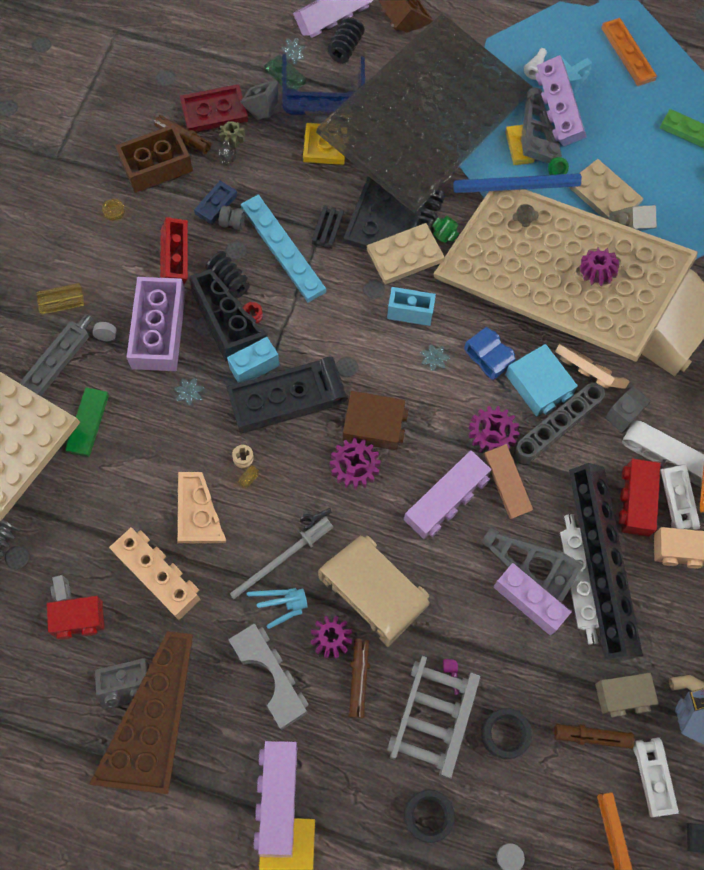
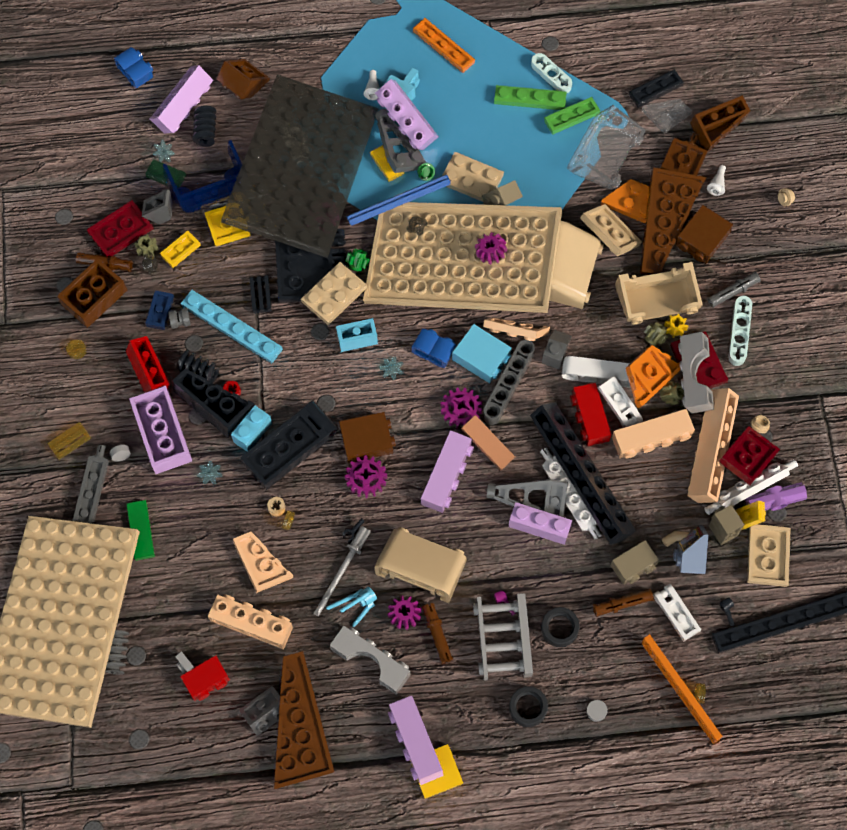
camera: 20 degrees left, 0 degrees up
(265, 150) = (180, 249): none -> yellow plate

